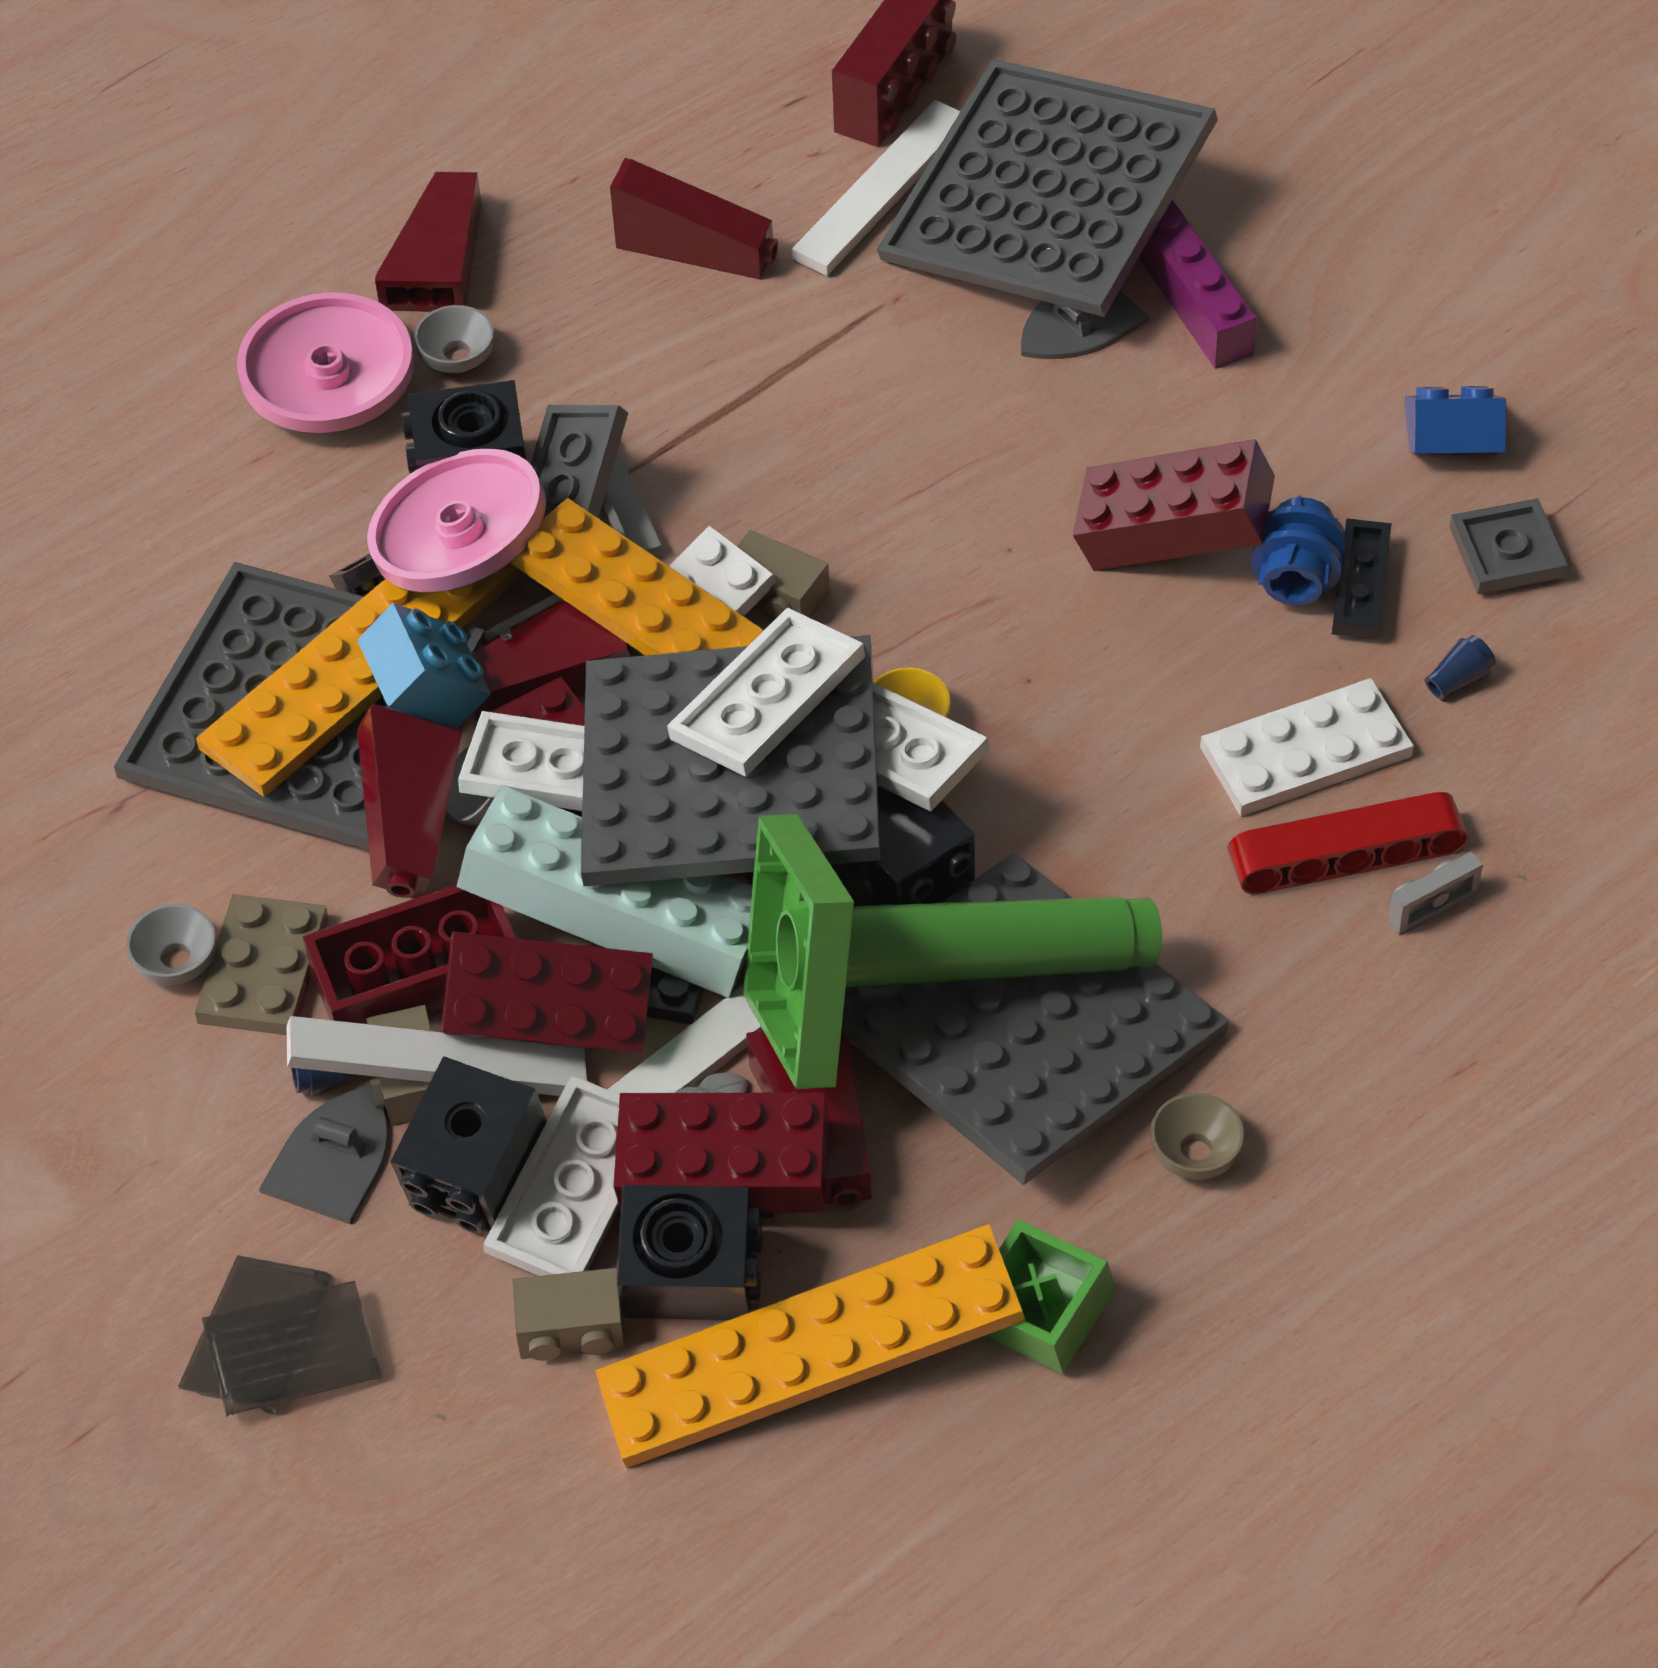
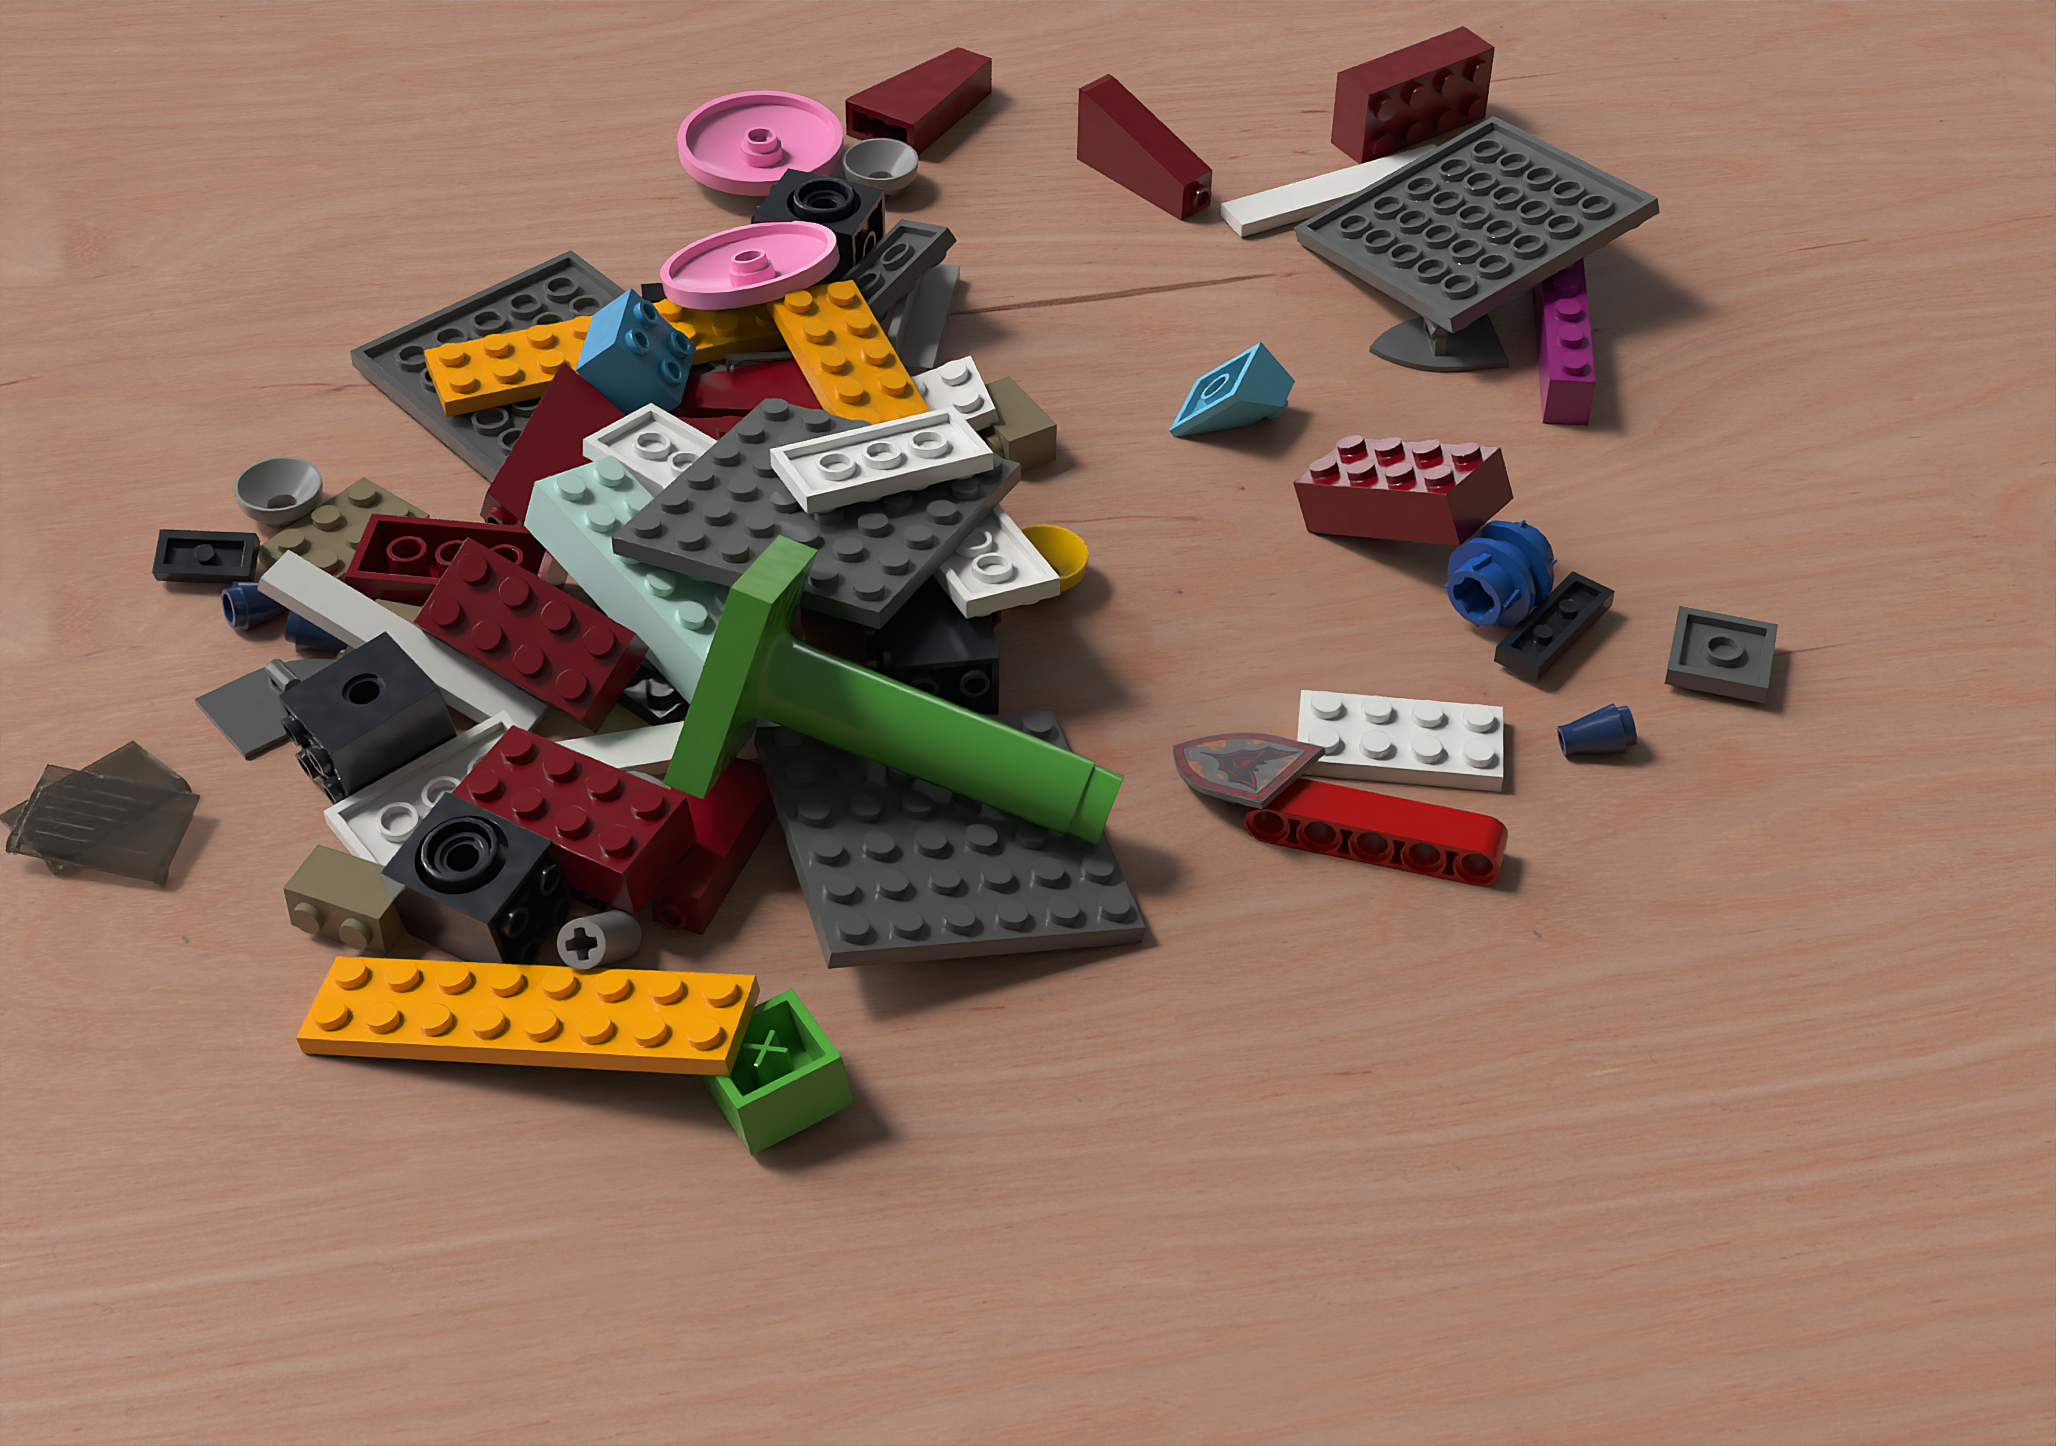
camera: 25 degrees right, 10 degrees down
(158, 1044) = (205, 556): none -> black plate
(240, 1070) = (247, 606): none -> dark blue cone
(818, 1250) = (599, 939): none -> light grey piece
(945, 458) = (1235, 394): none -> medium azure slope
(1199, 1119) = (1033, 991): dark tan piece -> none
(1211, 834) = (1244, 765): none -> shield
(1434, 893) = (1430, 904): light grey plate -> none
(1456, 422) = (1739, 535): blue slope -> none

